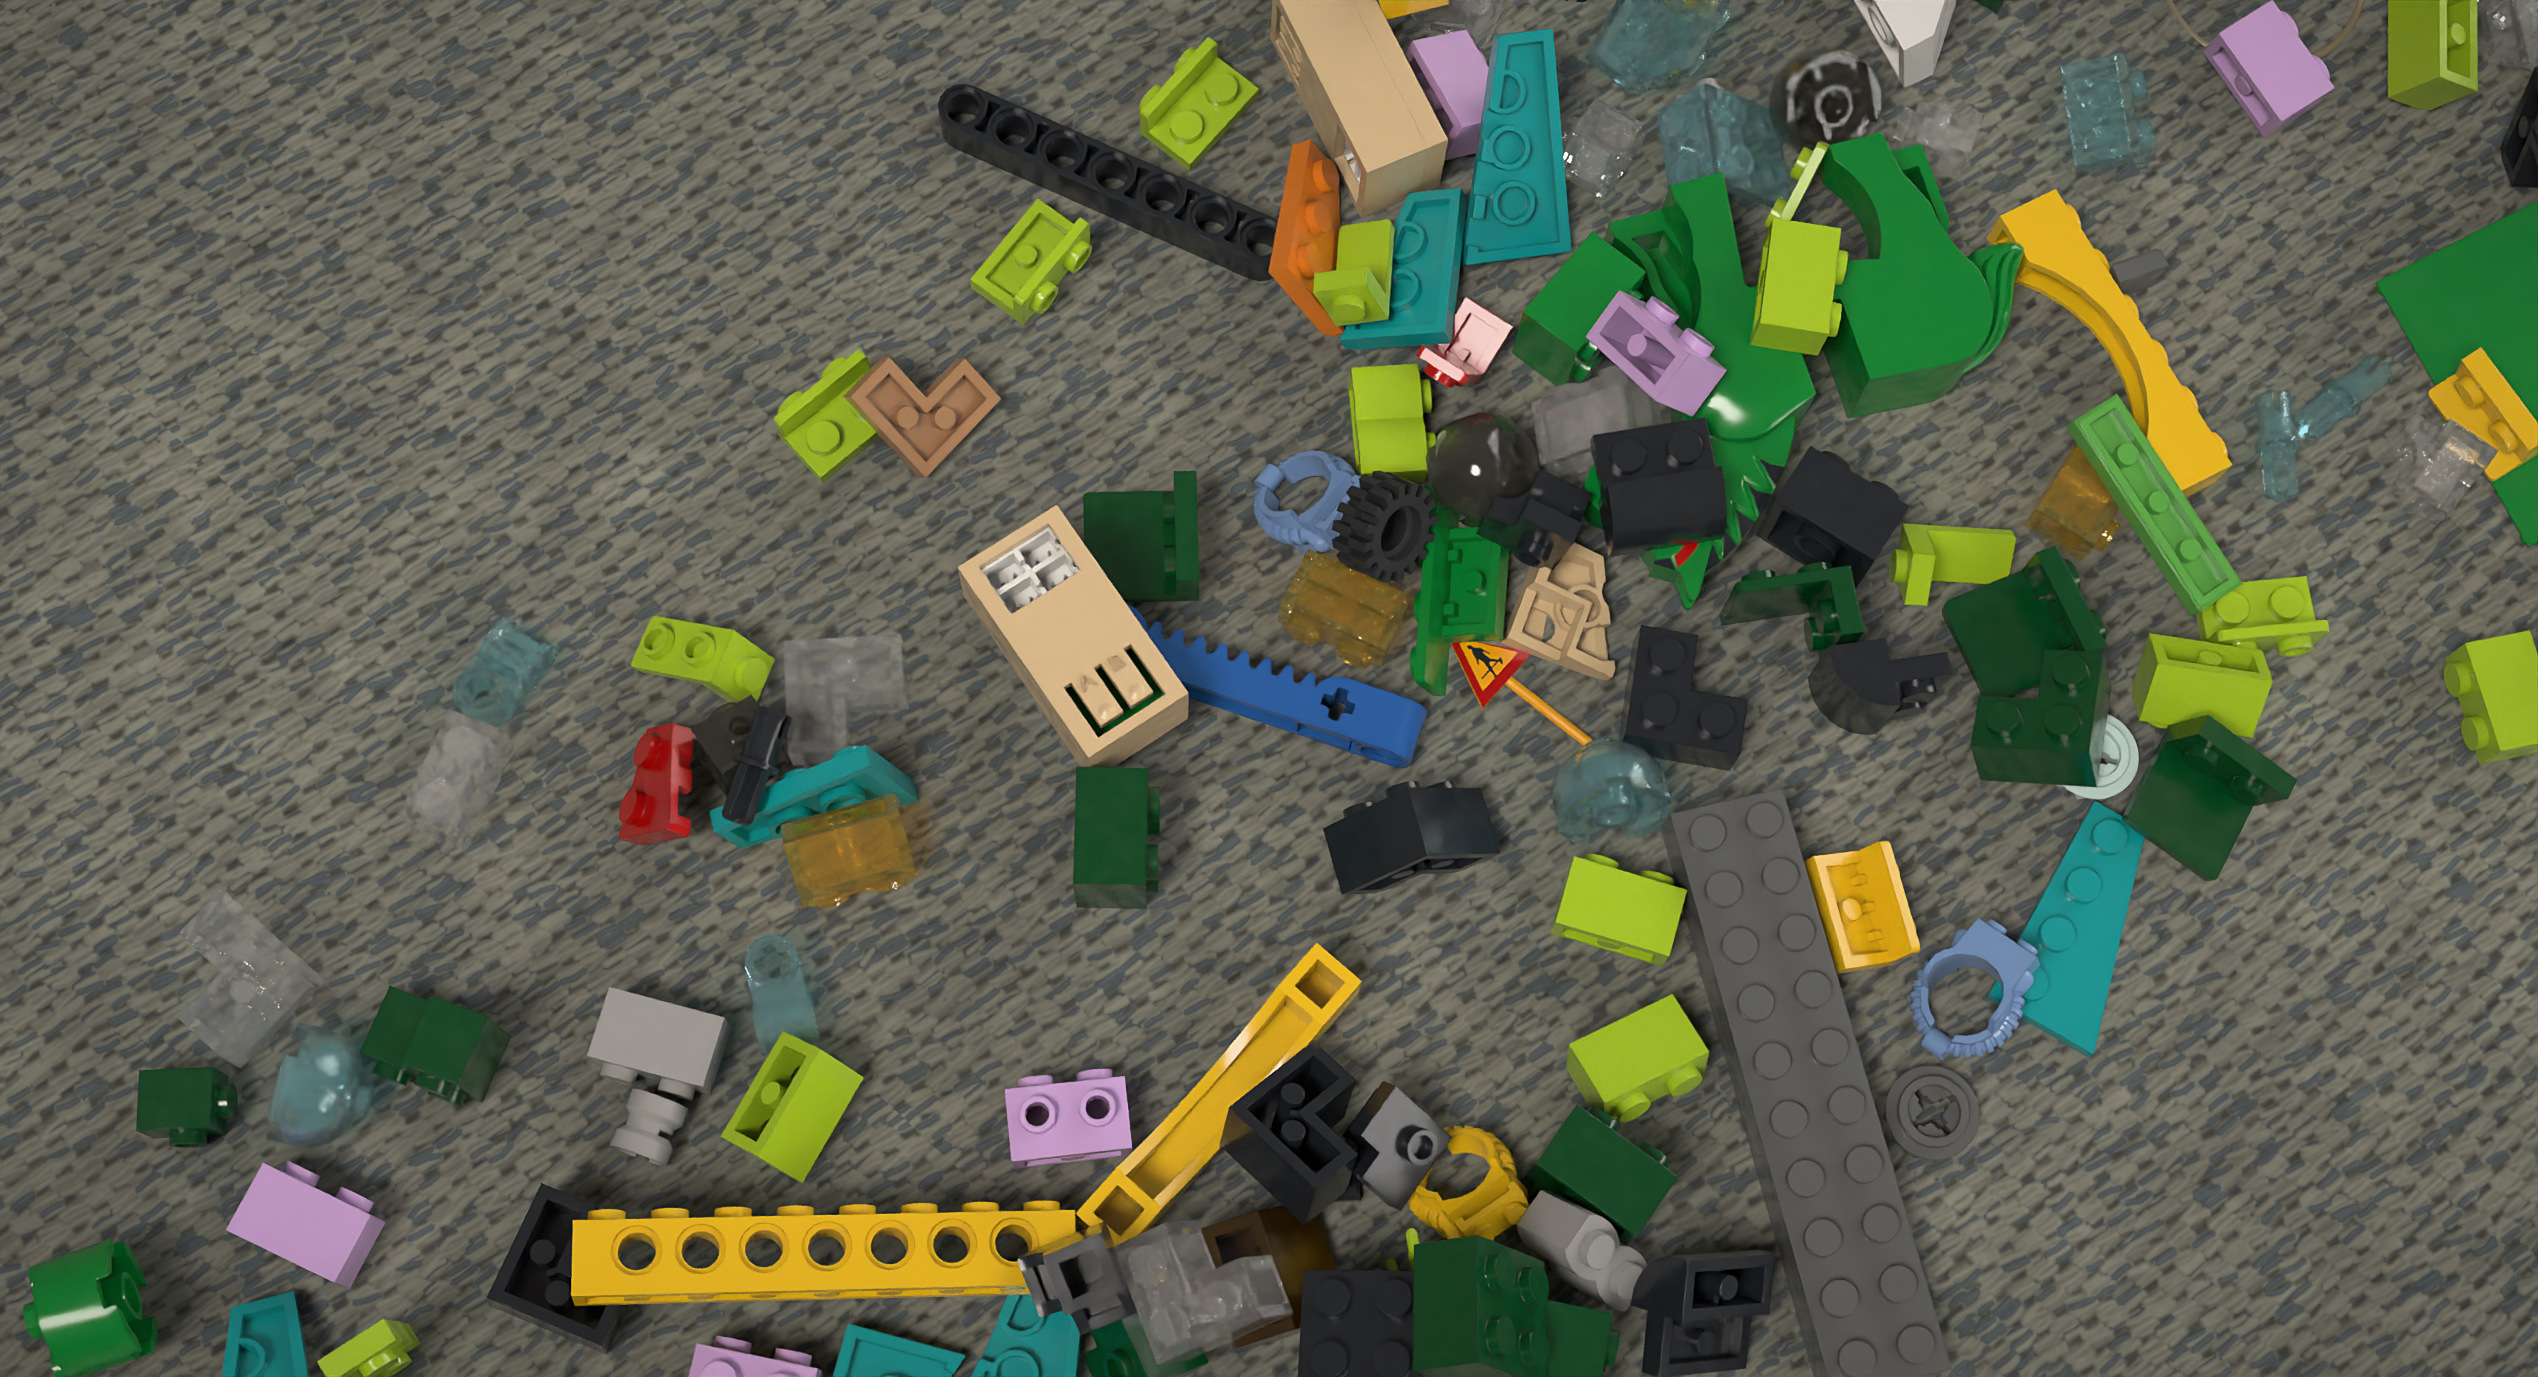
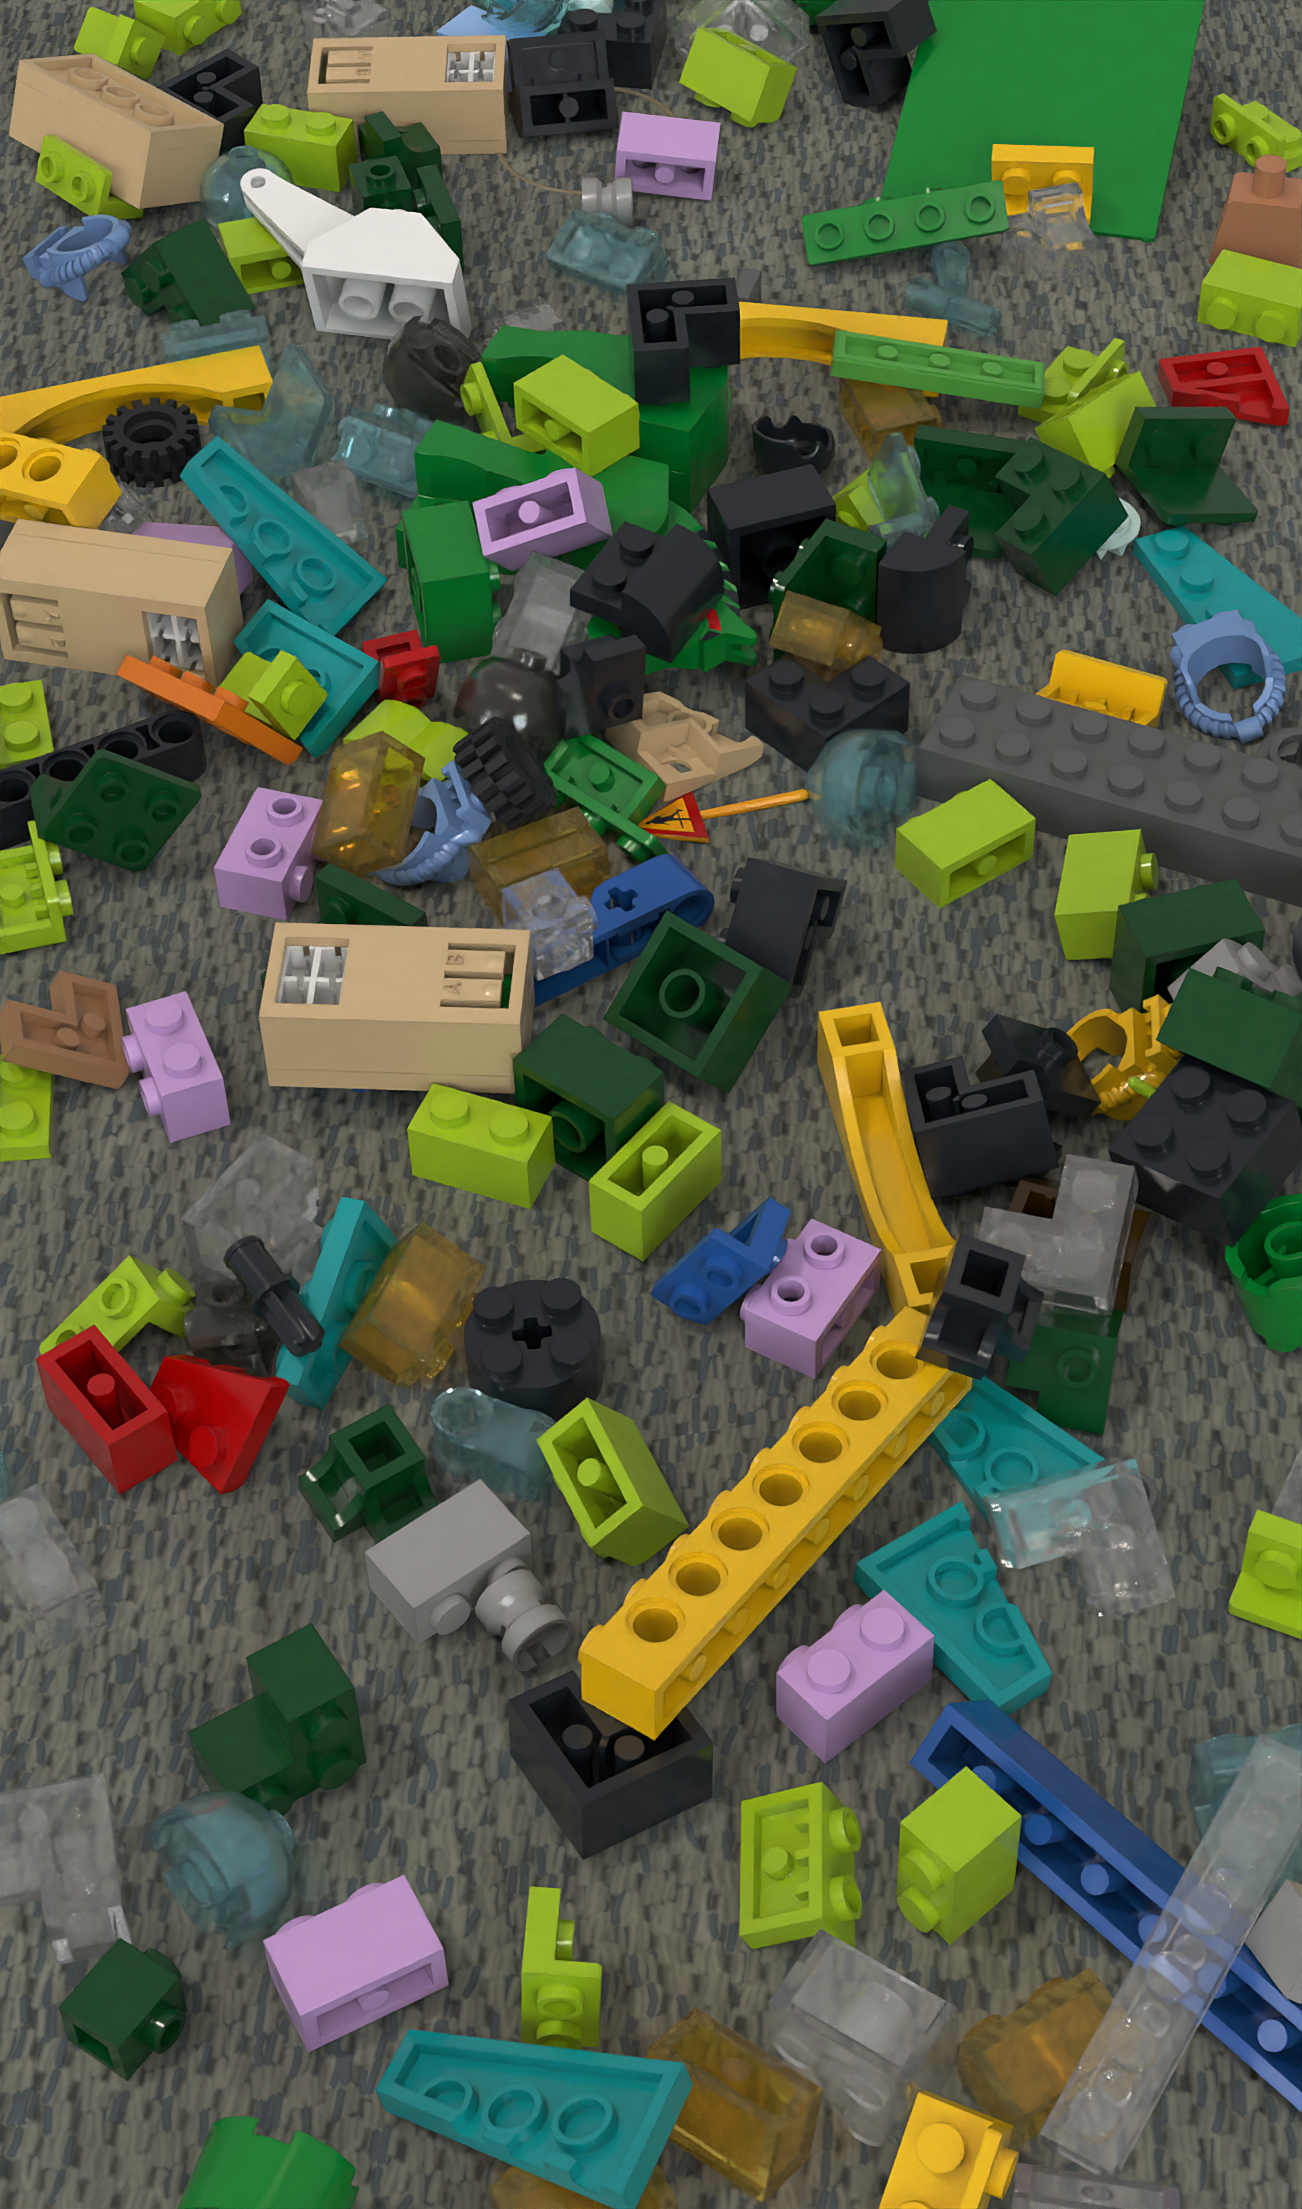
camera: 45 degrees left, 25 degrees down
(610, 716) = (107, 1409): none -> red brick
(686, 941) = (369, 1479): none -> dark green brick
(870, 932) = (535, 1346): none -> black brick
(946, 510) = (177, 1067): none -> lavender brick
(1033, 782) = (481, 1145): none -> lime brick
(1039, 1052) = (724, 1265): none -> blue bracket
(1085, 934) = (655, 1180): none -> lime brick
(1131, 263) = (113, 810): none -> dark green bracket
(1207, 406) = (269, 855): none -> lavender brick
(1242, 666) = (558, 932): none -> clear brick
(1271, 840) = (697, 1002): none -> dark green brick
(1286, 446) = (368, 804): none -> clear yellow brick
(1747, 649) = (824, 633): none -> clear yellow brick
(1913, 631) = (899, 492): none -> clear light blue bracket
(1952, 284) = (678, 329): none -> black brick
(1976, 428) = (792, 445): none -> black hair
(2173, 63) = (613, 200): none -> light grey wheel
(2342, 334) = (905, 223): none -> green bracket
(2363, 744) = (1227, 379): none -> red wing

